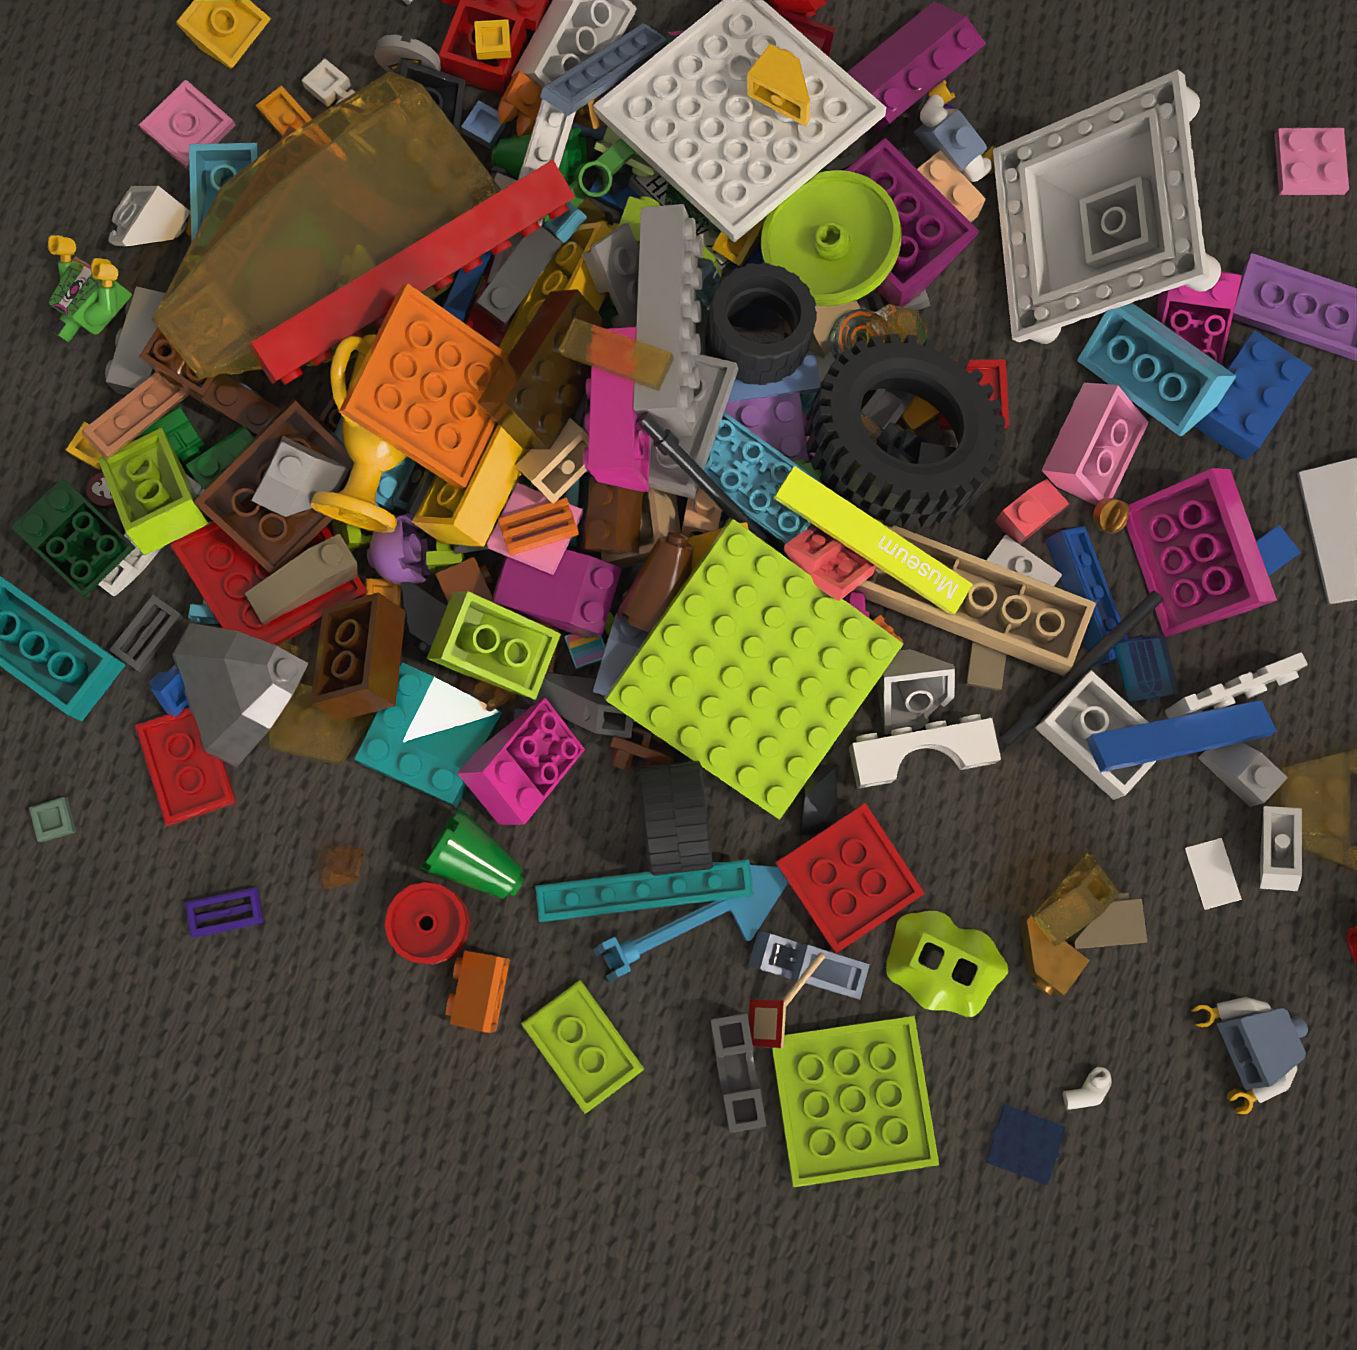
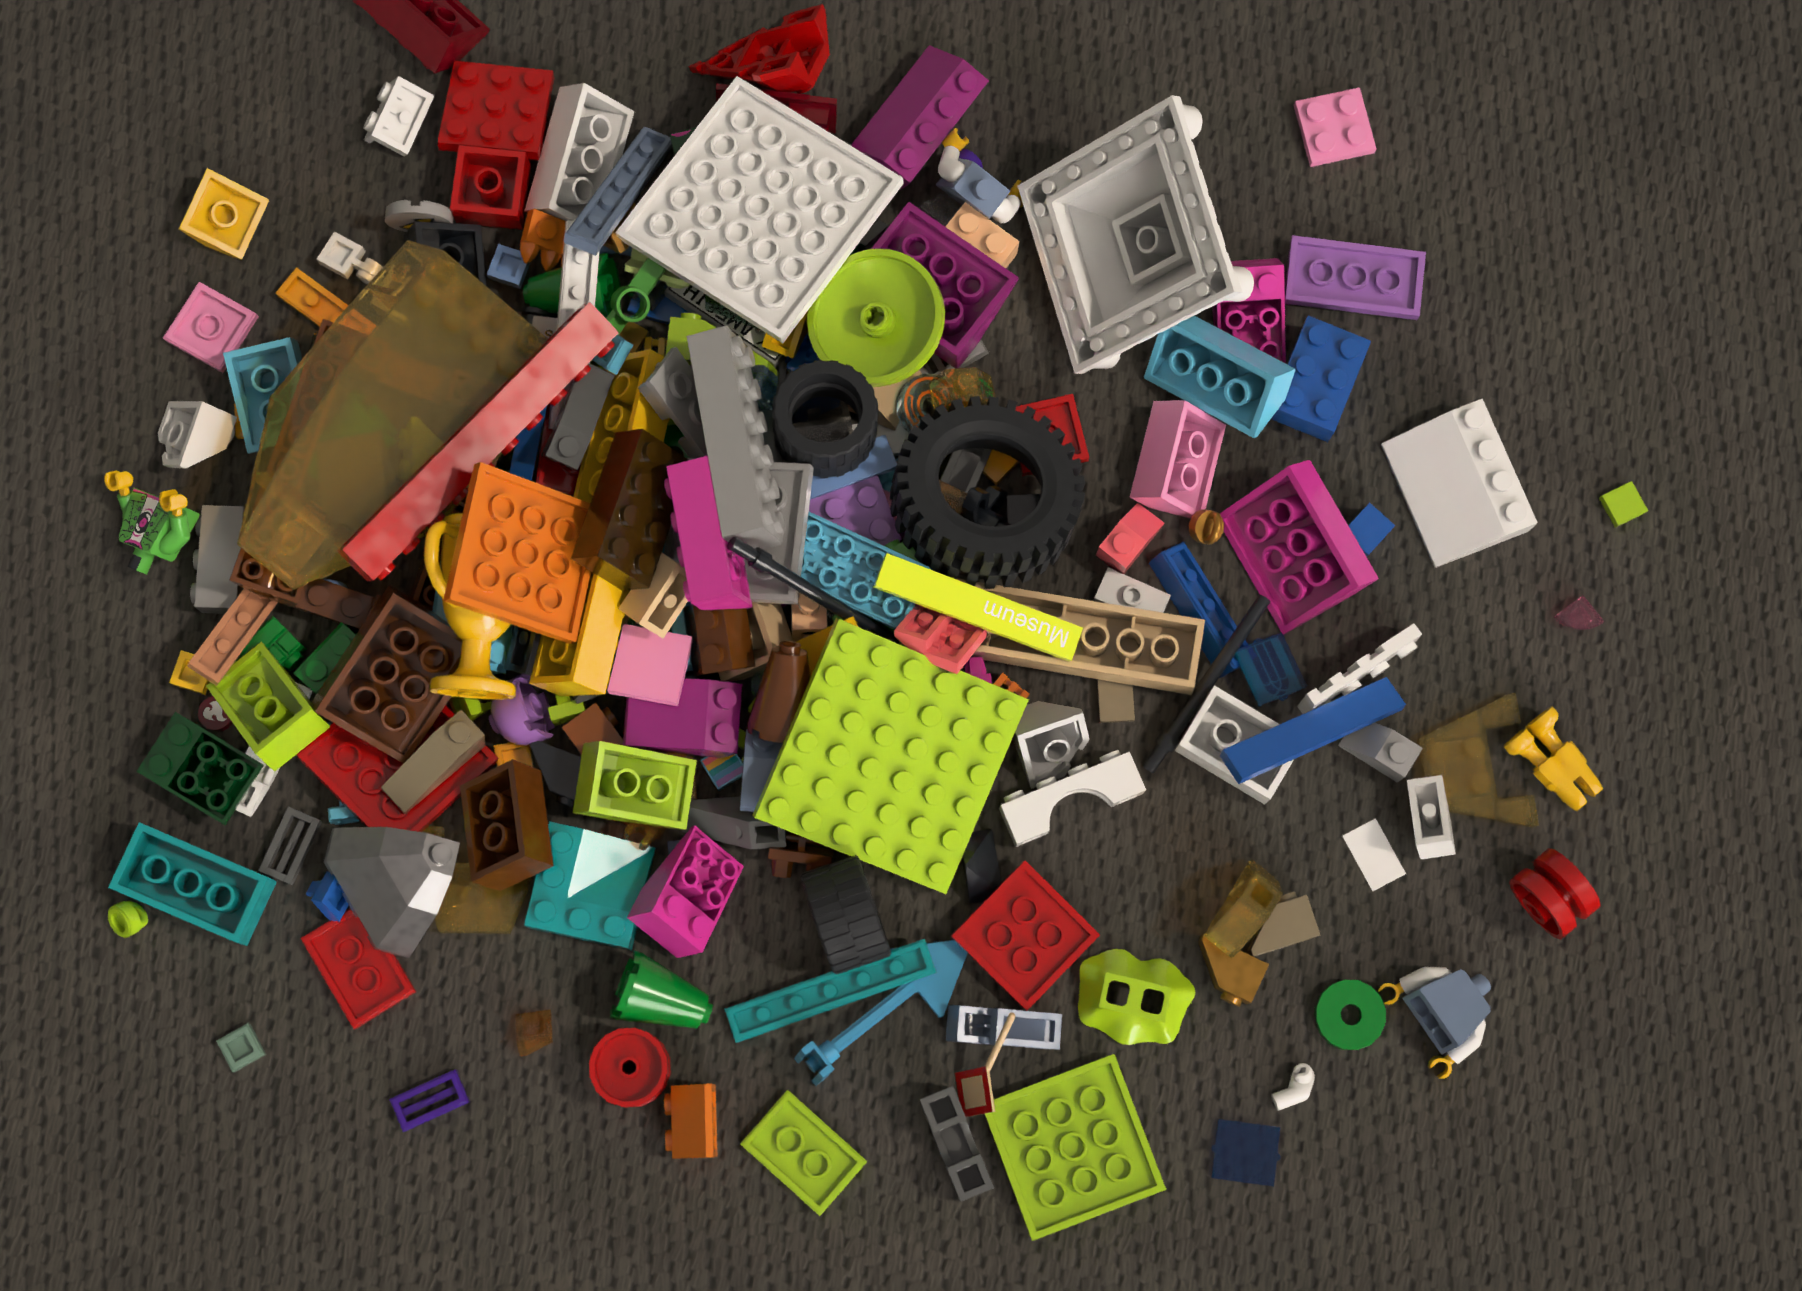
camera: 10 degrees left, 0 degrees up
(295, 477) = (409, 665): light grey slope -> none
(492, 39) = (500, 184): yellow plate -> none
(533, 514) = (647, 651): orange tile -> none
(616, 354) = (694, 486): clear yellow tile -> none
(780, 84) = (794, 177): yellow slope -> none
(1180, 1026) = (1371, 1015): none -> green tile

